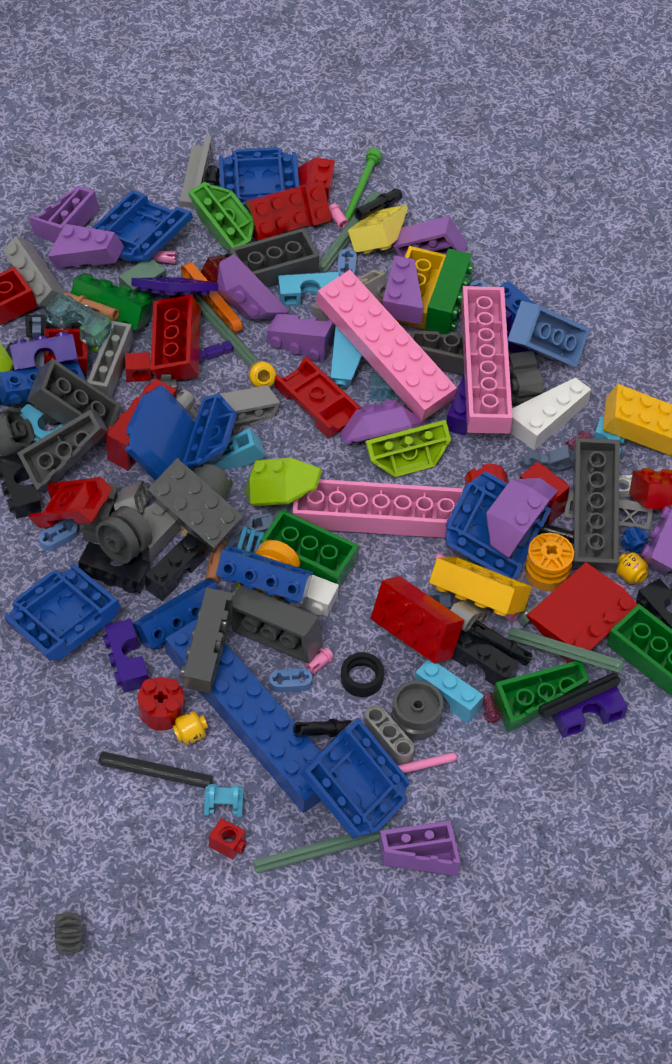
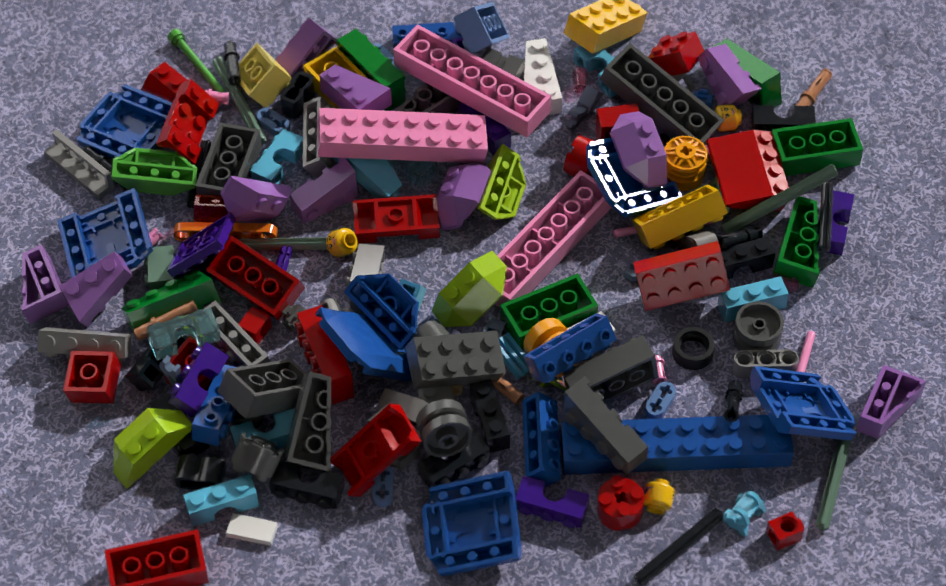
camera: 50 degrees left, 0 degrees up
(379, 259) = (297, 94): none -> black brick

